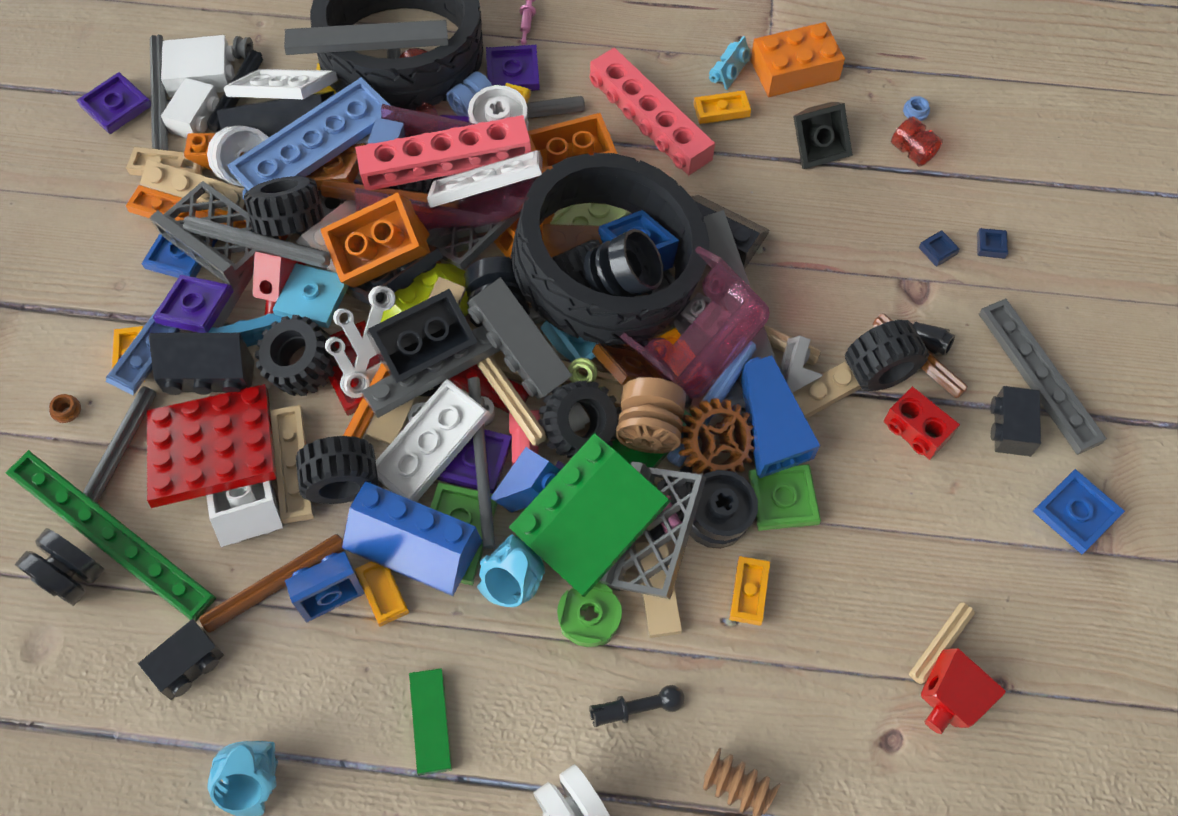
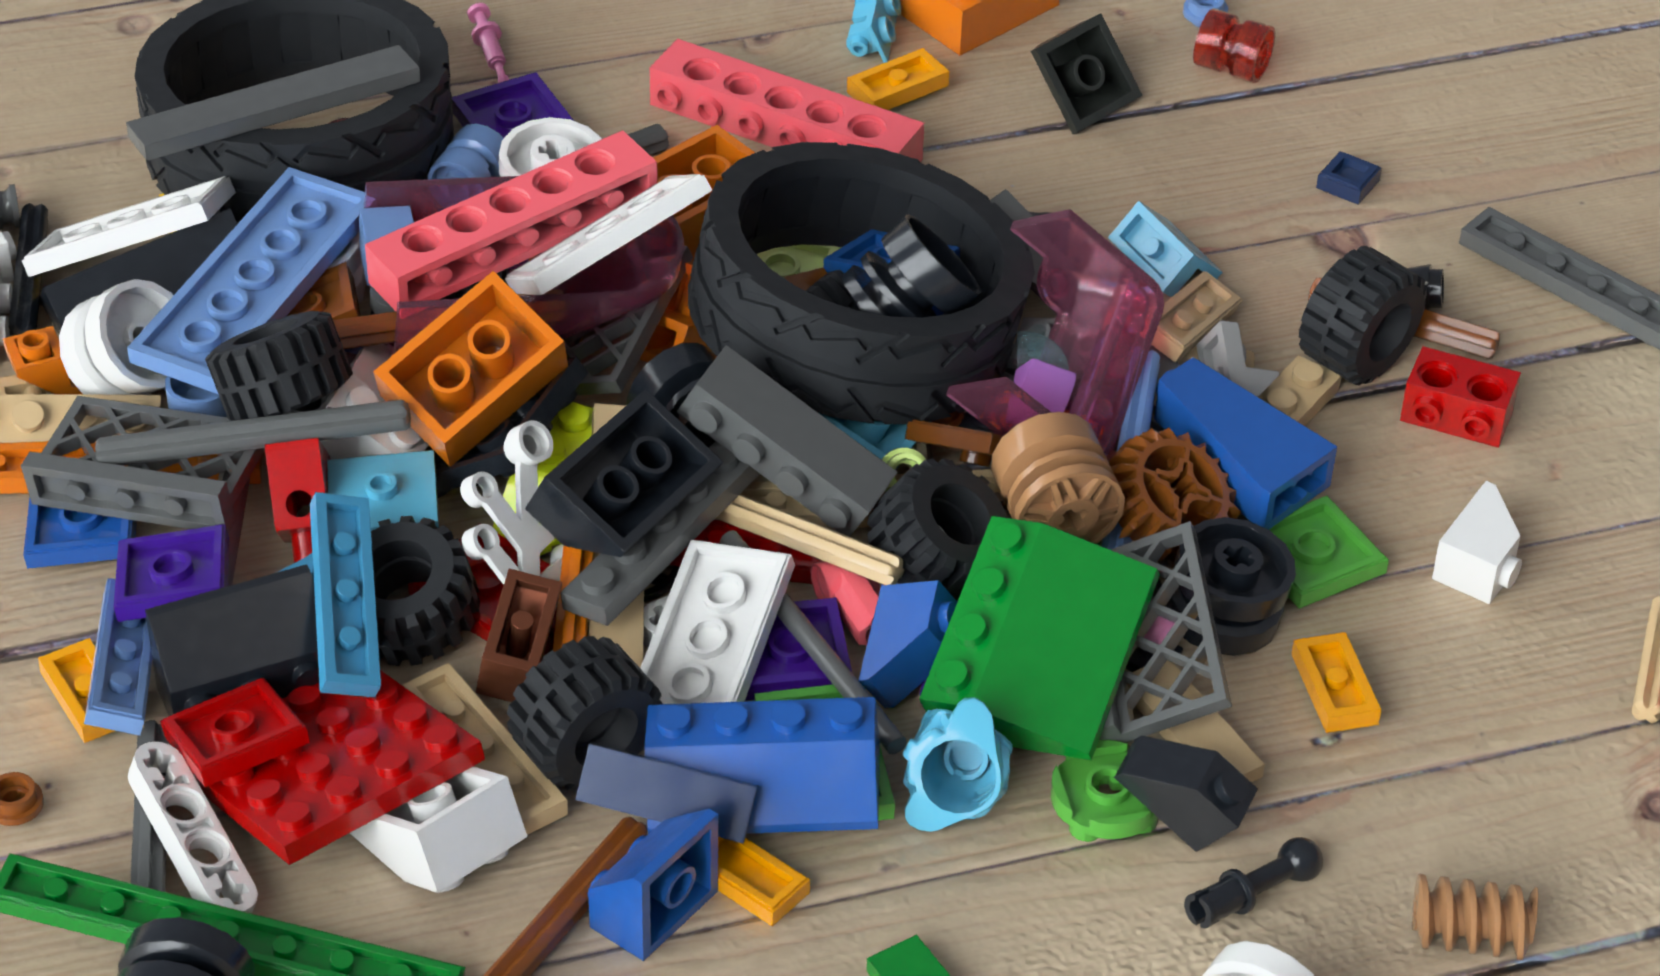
camera: 25 degrees left, 20 degrees down
(129, 464) = (182, 836): none -> white beam
(171, 414) = (235, 731): none -> red tile
(251, 356) = (344, 595): none -> dark azure plate
(334, 405) = (517, 633): none -> copper slope
(352, 536) = (664, 790): none -> dark blue tile
(623, 637) = (1187, 788): none -> black slope
(676, 350) = (1046, 383): none -> medium lavender slope
(687, 326) = (1036, 346): none -> clear light blue tile
(795, 317) = (1193, 314): none -> tan tile
(807, 264) = (1160, 249): none -> medium azure panel
(878, 531) = (1480, 548): none -> white slope
(992, 243) = (1424, 150): dark blue tile -> none
(1016, 421) = (1597, 353): black brick -> none

